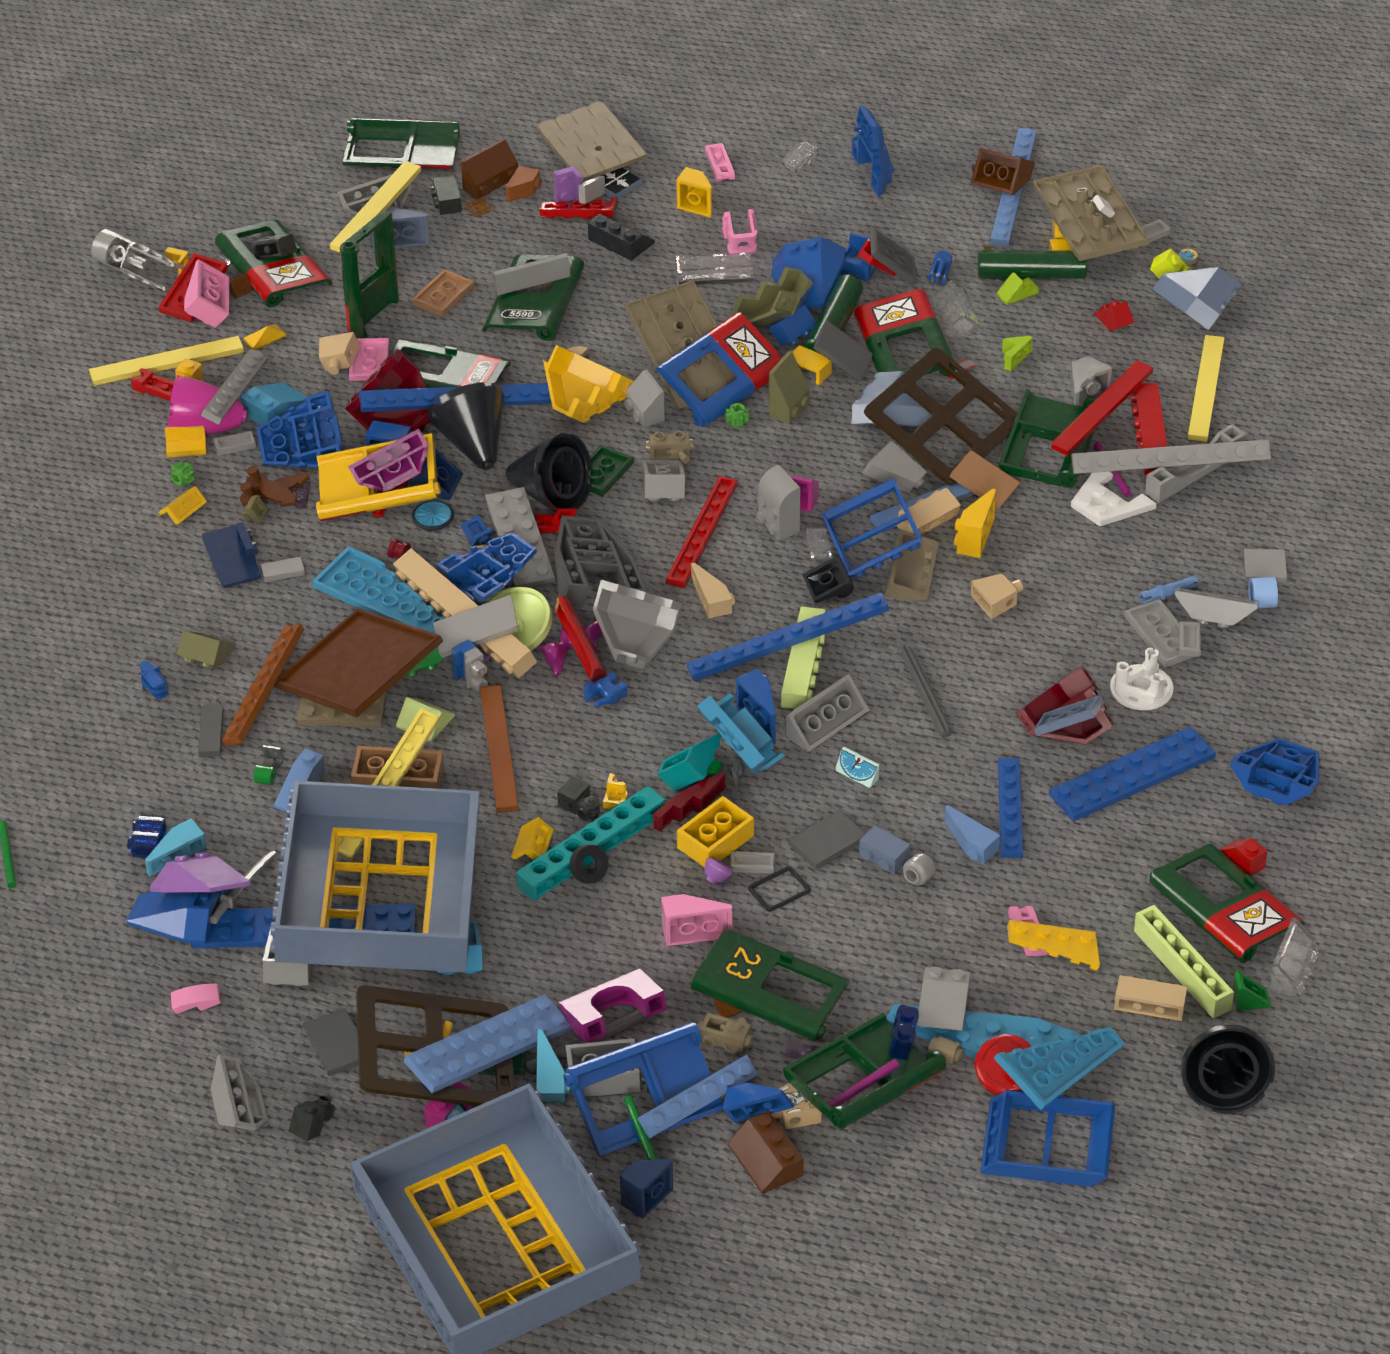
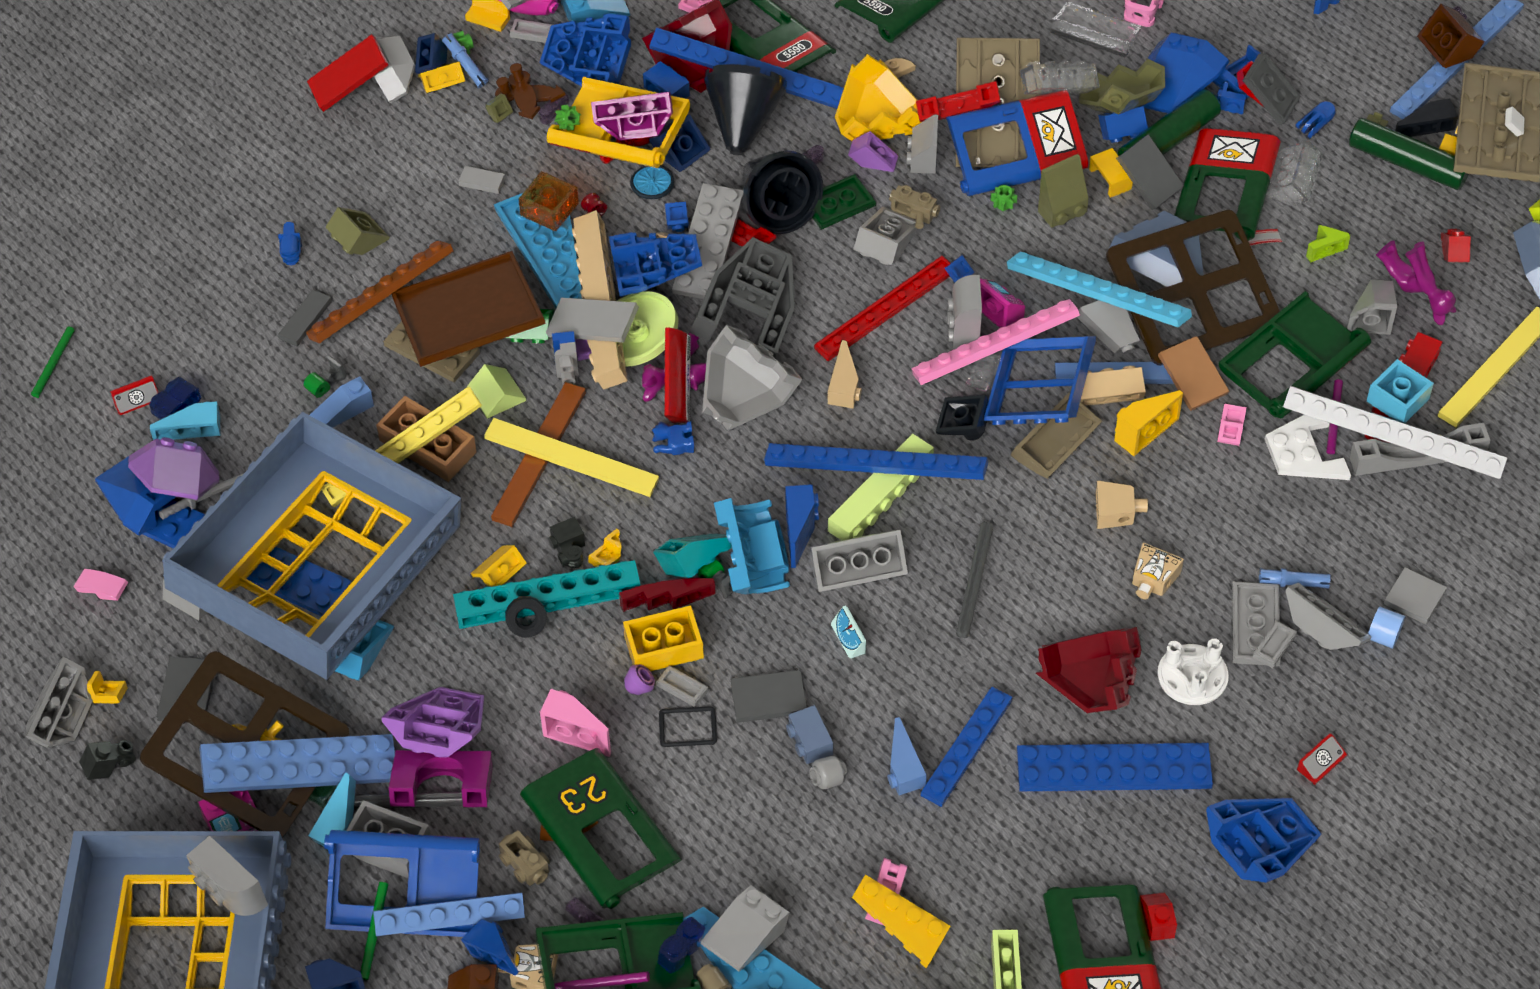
camera: 30 degrees right, 10 degrees up
(101, 530) = (347, 73): none -> red tile
(107, 847) = (134, 395): none -> slope
(131, 512) = (396, 77): none -> light grey wedge
(163, 488) = (430, 53): none -> dark blue slope
(203, 486) = (459, 53): none -> medium blue pin
(232, 554) = (446, 146): dark blue bracket -> none
(268, 1071) = (105, 691): none -> yellow bracket
(327, 491) = (567, 117): none -> bright green gear
(364, 557) = (548, 201): none -> clear orange brick
(522, 1127) = (225, 879): none -> light grey brick
(530, 737) = (571, 457): none -> light yellow tile
(584, 965) = (436, 721): none -> medium lavender wedge
(603, 423) = (872, 153): none -> medium lavender slope
(659, 353) = (982, 97): none -> red slope
(724, 305) = (1054, 77): none -> clear brick
(742, 480) = (959, 268): none -> blue tile
(814, 517) = (996, 341): none -> bright pink plate
(868, 278) = (1231, 101): none -> blue bracket
(875, 443) = (1100, 289): none -> medium azure plate
(1016, 289) = (1375, 175): lime slope -> none
(1030, 233) = (1429, 119): none -> black slope
(1039, 505) = (1231, 424): none -> bright pink slope
(1060, 626) = (1155, 571): none -> tan torso
(1069, 715) = (1082, 676): sand blue tile -> none
(1101, 408) = (1363, 346): red tile -> none
(1108, 349) = (1418, 278): none -> magenta animal
(1157, 425) = (1399, 392): none -> medium azure brick
(1281, 702) = (1321, 759): none -> slope

